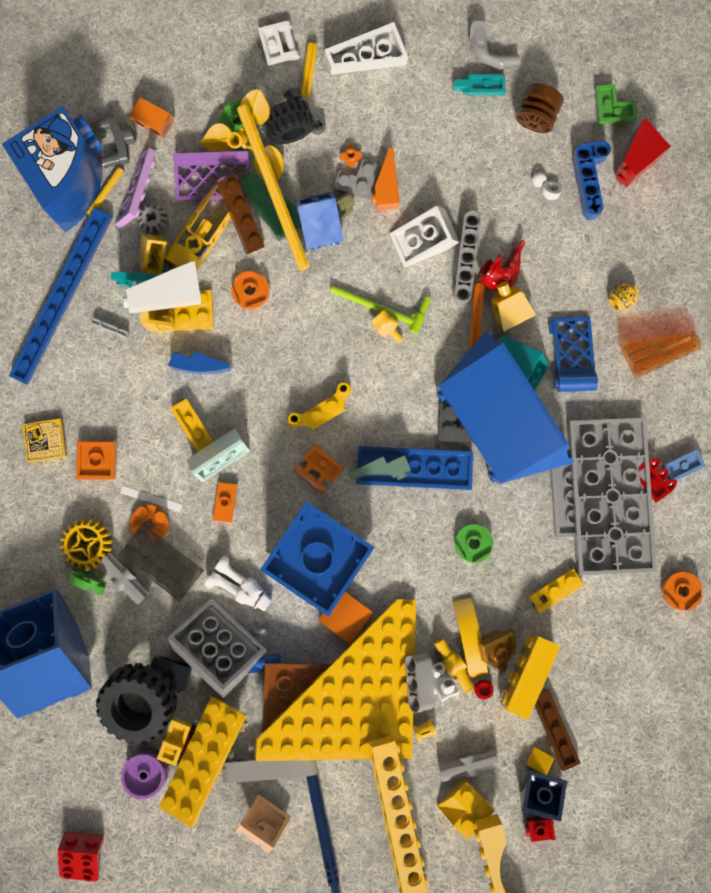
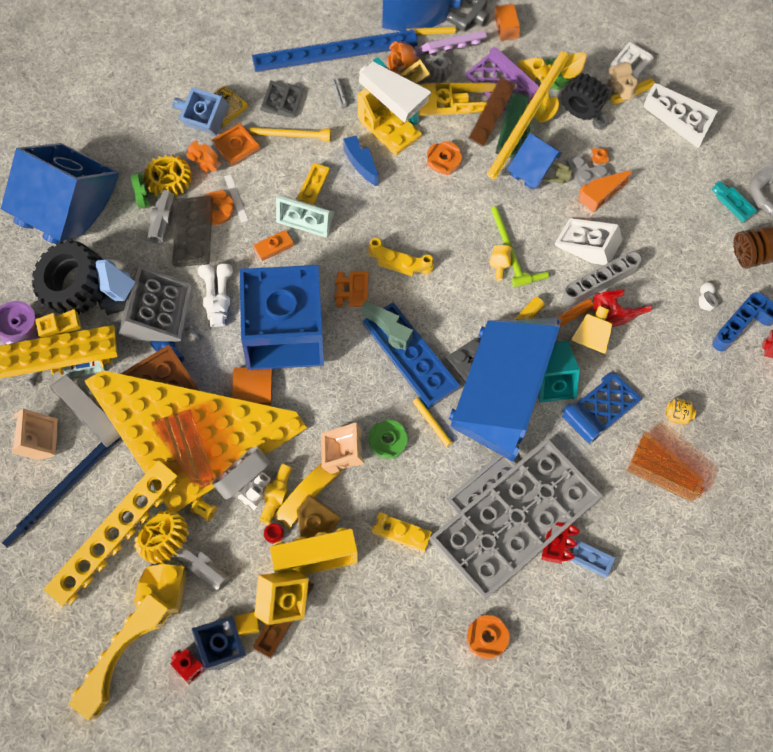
camera: 50 degrees right, 20 degrees down
(38, 477) = (202, 110): none -> medium blue brick
(77, 383) = (281, 99): none -> dark grey slope
(93, 501) = (203, 156): none -> orange plate
(117, 243) = (401, 55): none -> orange cylinder
(145, 376) = (324, 134): none -> yellow piece
(174, 672) = (113, 281): none -> light blue slope
(297, 73) = (622, 80): none -> tan piece
(368, 715) = (184, 444): none -> clear orange slope
(425, 787) = (161, 537): none -> yellow gear
(451, 343) = (531, 309): none -> yellow piece
(460, 589) = (341, 448): none -> light nougat brick
(484, 495) = (432, 421): none -> yellow bar
(549, 727) = (281, 597): none -> yellow slope

